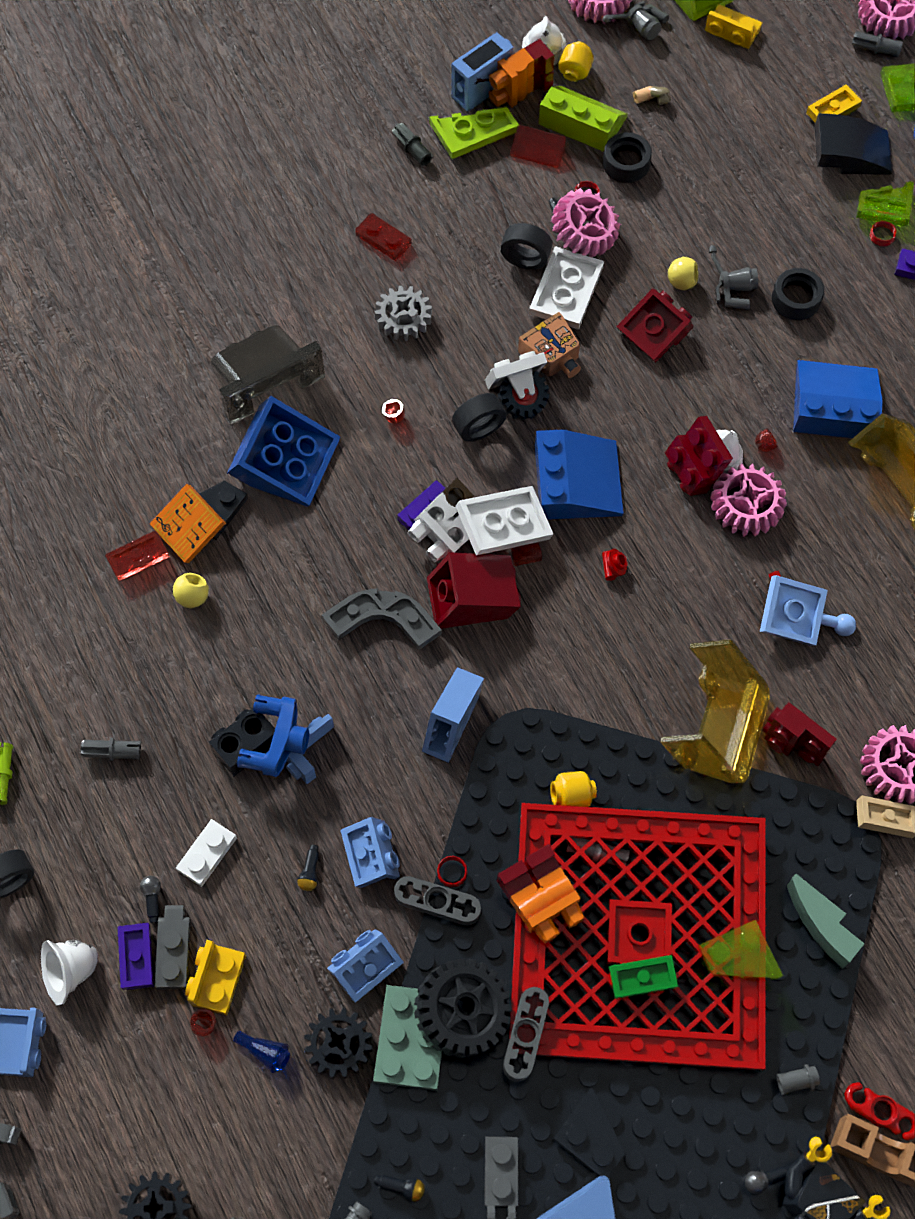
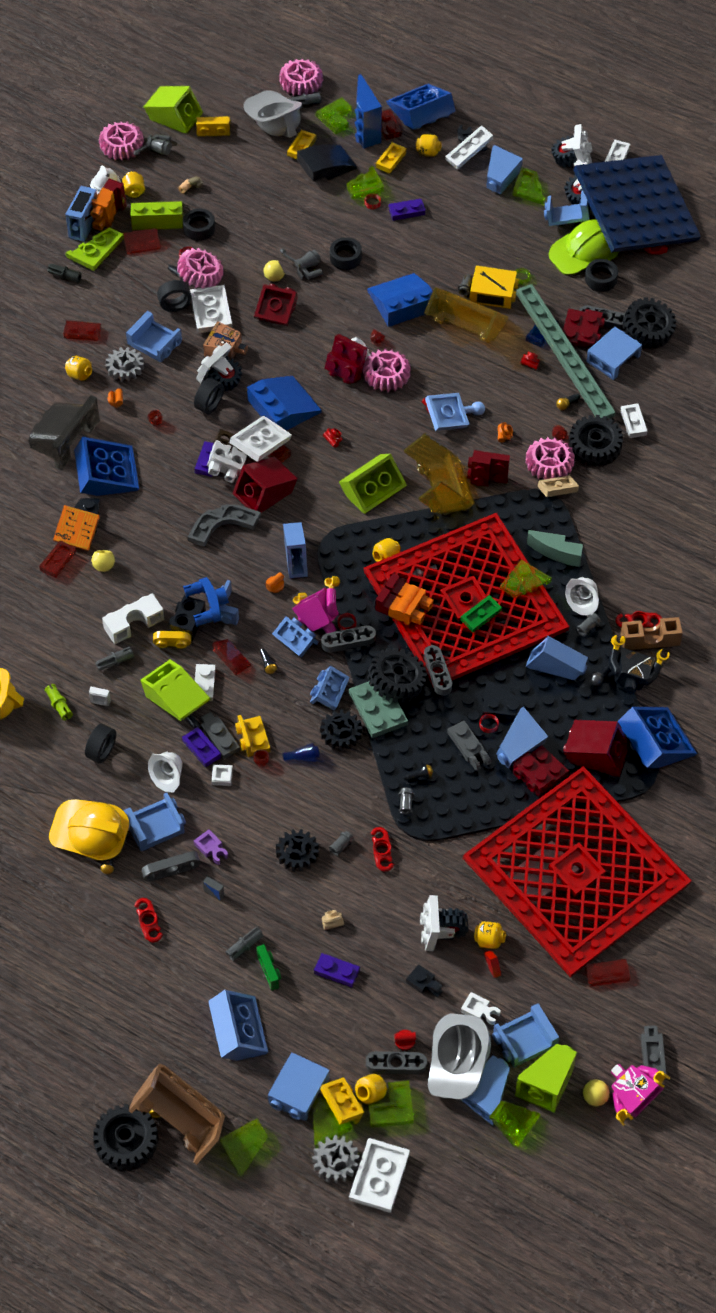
camera: 30 degrees left, 10 degrees down
(45, 1123) = (210, 845): none -> medium lavender plate
(54, 797) = (99, 696): none -> white tile
(137, 1016) = (222, 775): none -> white tile
(148, 851) = (174, 690): none -> lime slope
(149, 696) = (145, 609): none -> white arch
(212, 769) = (171, 638): none -> yellow plate
(267, 831) = (231, 656): none -> clear red slope
(340, 288) = (78, 368): none -> yellow head
(360, 356) = (115, 398): none -> orange plate
(395, 751) = (275, 583): none -> orange plate
(421, 830) = (319, 608): none -> dark pink torso
(465, 292) = (153, 338): none -> medium blue panel
(567, 1160) = (489, 716): none -> red axle
(624, 666) = (373, 483): none -> lime slope
(713, 1118) = (557, 659): none -> medium blue slope
(816, 1028) = (582, 595): none -> white piece
(823, 44) = (274, 113): none -> light grey piece
(860, 684) = (505, 432): none -> orange plate

